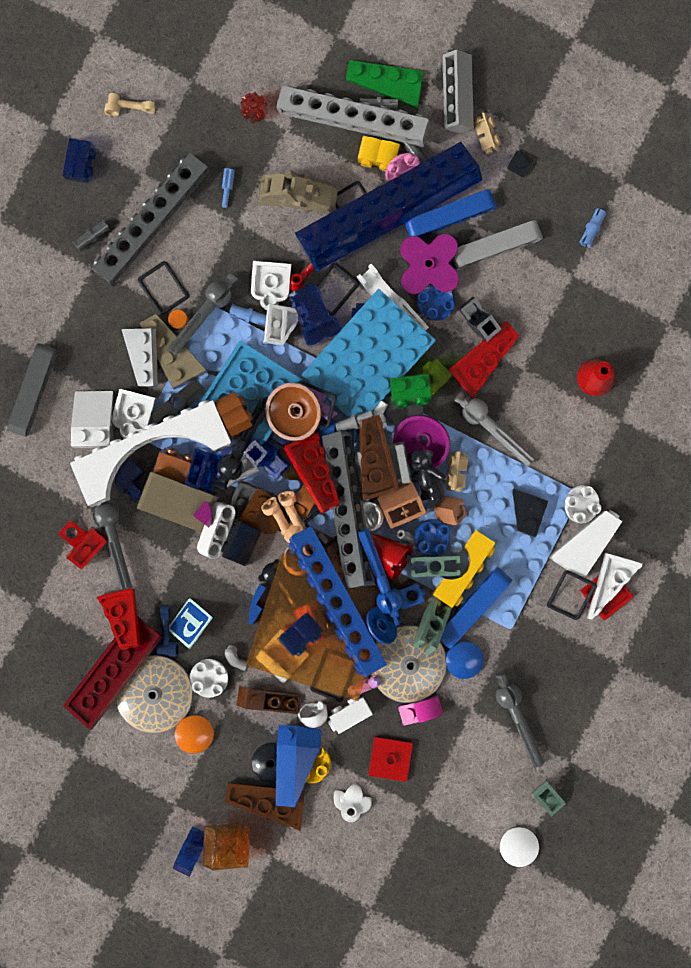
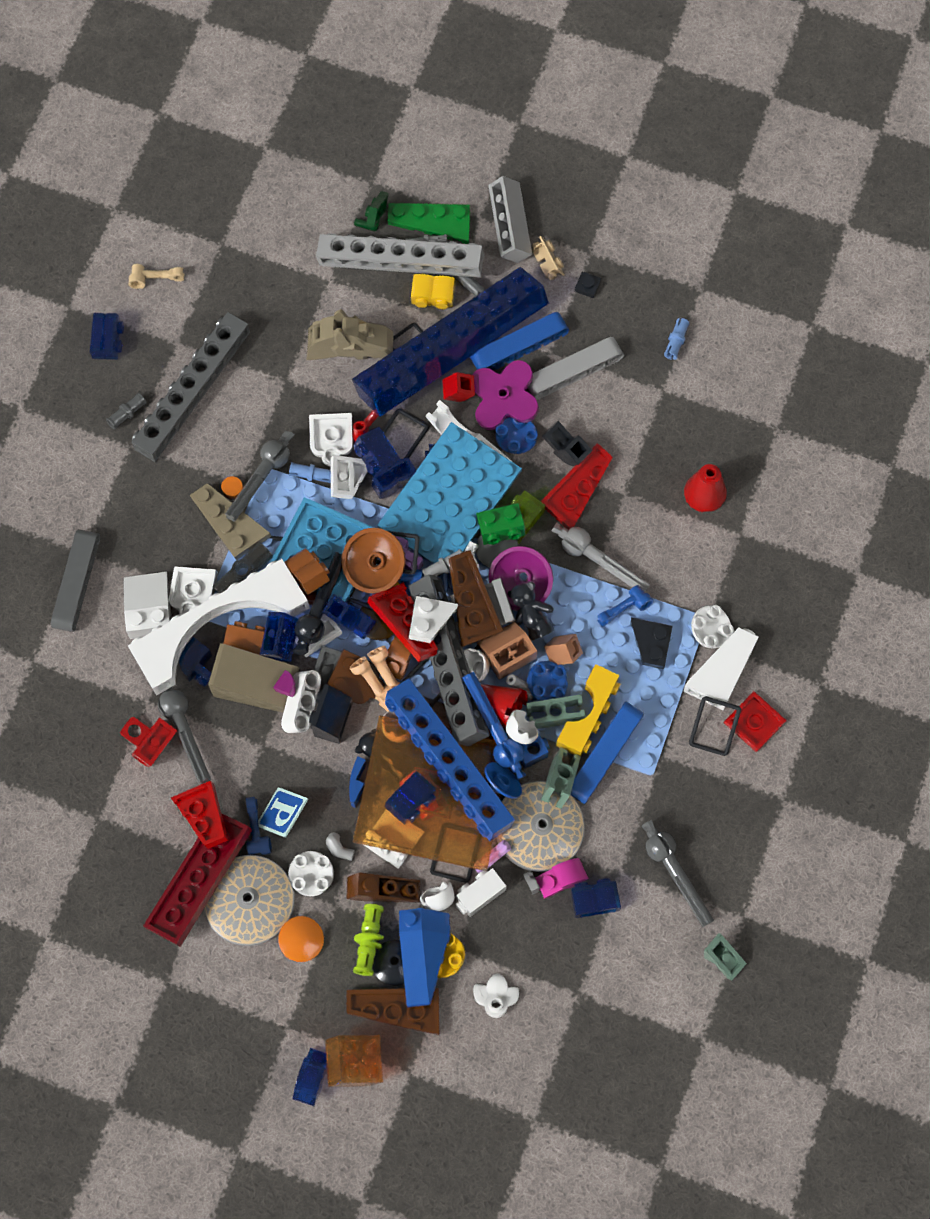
camera: 15 degrees left, 15 degrees down
(143, 354) = (197, 527): wing -> none
(150, 296) = (224, 446): black piece -> none
(227, 185) = (271, 342): medium blue axle -> none
(250, 743) = (367, 939): none -> lime piece
(254, 113) = (291, 260): clear red brick -> none
(334, 69) = (374, 212): none -> dark green plate
(335, 474) = (429, 618): none -> white wing
(389, 251) = (458, 387): none -> red brick
(390, 759) = (534, 939): red plate -> none
(394, 710) = (532, 883): none -> light grey tile
(401, 164) = (458, 296): bright pink dish -> none
(403, 583) = (520, 729): none -> white hair
(446, 732) = (595, 899): none -> clear blue brick
(457, 462) = (564, 597): tan hinge -> none
(464, 660) = (604, 814): blue dish -> none
(519, 847) = (700, 1021): white dish -> none
(522, 471) = (637, 597): none -> blue brick
(612, 577) = (758, 698): white wing -> none

